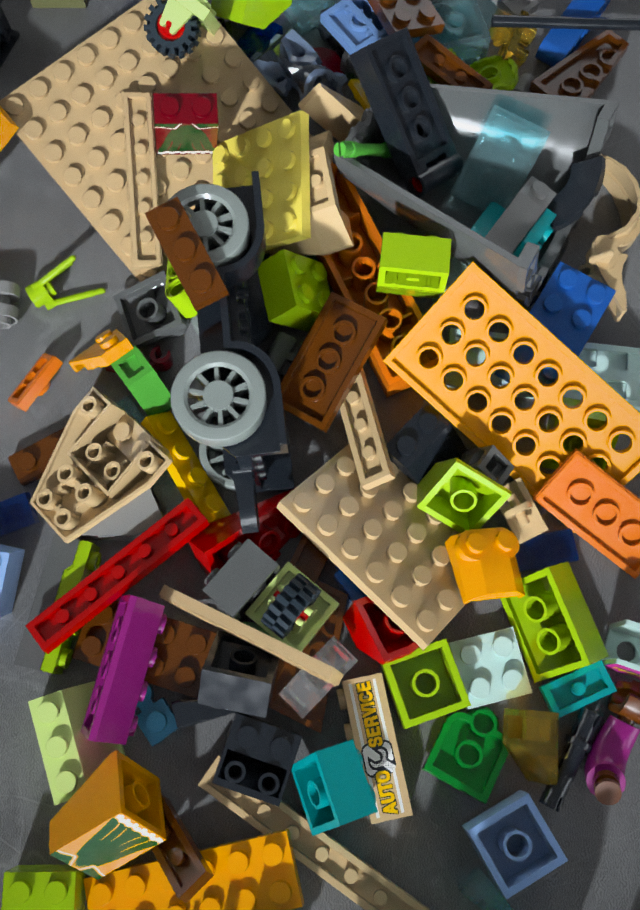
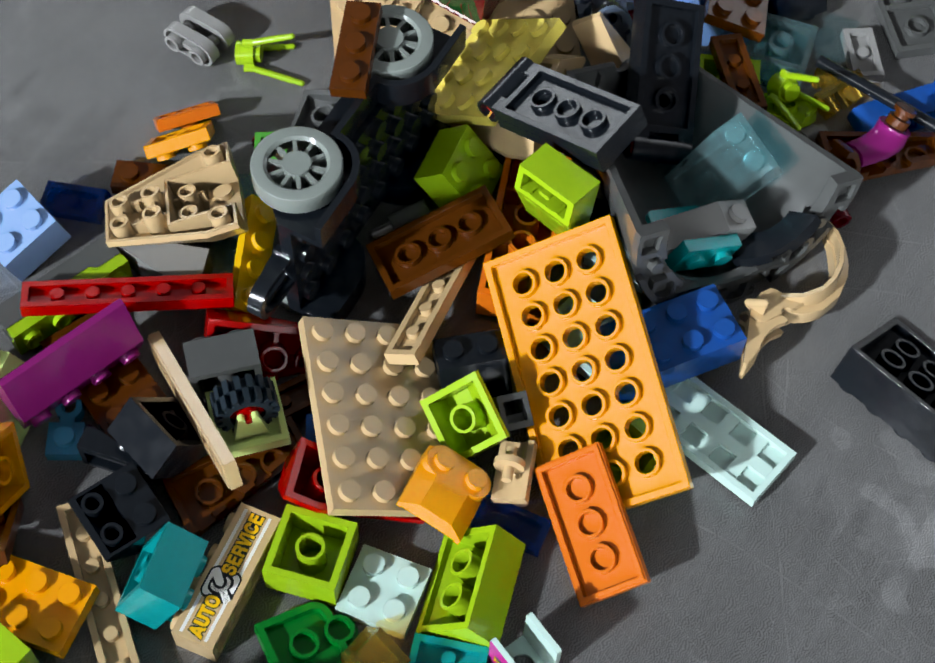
camera: 30 degrees right, 15 degrees down
(50, 408) = (167, 145): none -> light orange plate
(107, 349) = (265, 123): light orange wing -> none
(307, 690) = (206, 486): clear slope -> none
(353, 149) = (580, 72): bright green piece -> none
(373, 195) = (563, 113): none -> black hinge
(483, 60) = (785, 88): none -> lime plant
(586, 61) = (878, 143): none -> piece

